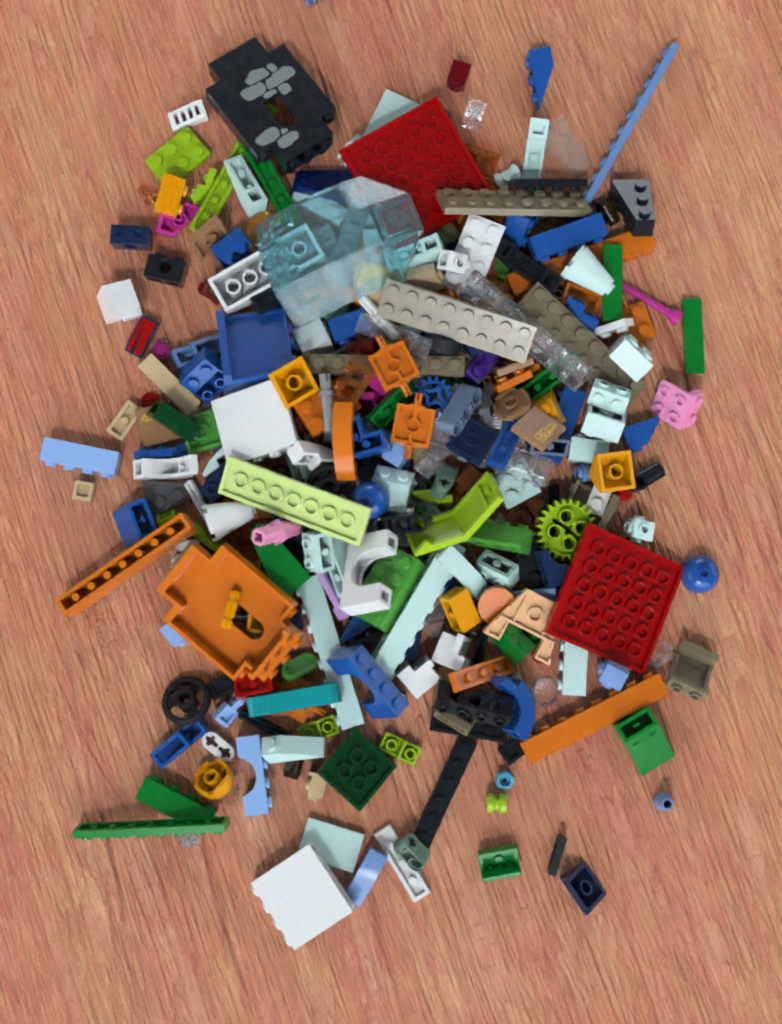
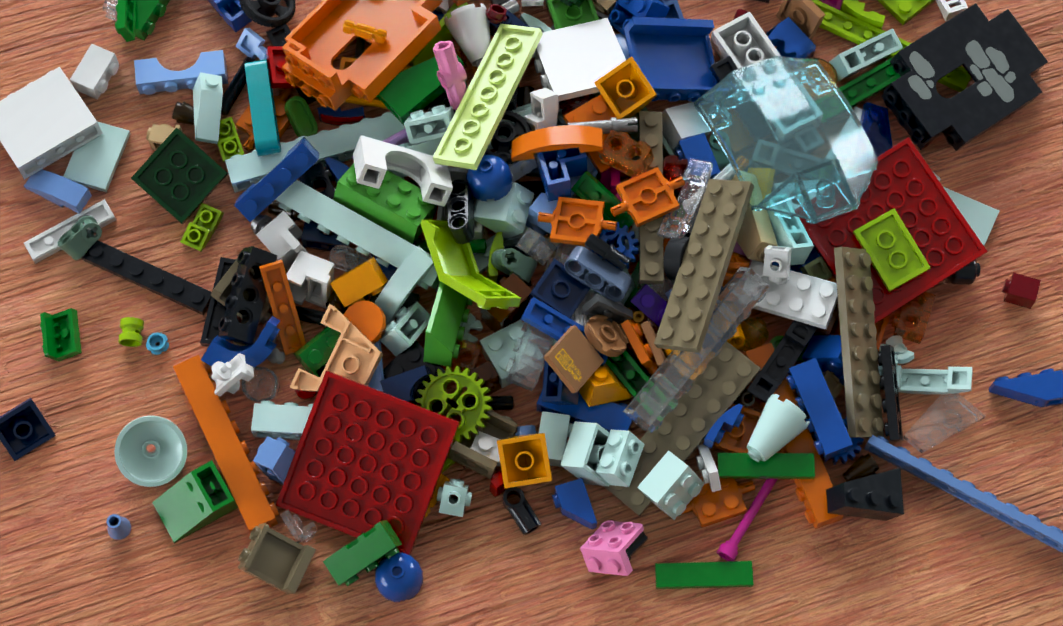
camera: 90 degrees right, 15 degrees down
(209, 495) = (496, 13): none -> dark red plate
(213, 779) = (176, 29): light orange cylinder -> none
(215, 749) = (213, 37): white beam -> none
(252, 851) = (95, 71): none -> white brick
(436, 171) = (891, 250): none -> lime plate
(444, 400) = (606, 251): none -> black axle
(474, 114) = (976, 310): clear bracket -> none
(510, 751) = (189, 349): black tile -> none
(541, 713) = (228, 374): none -> white hips
(556, 855) = (64, 400): pearl dark grey tile -> none
(611, 778) = (147, 467): none -> light aqua dish
(687, 600) = (363, 553): none -> green wedge

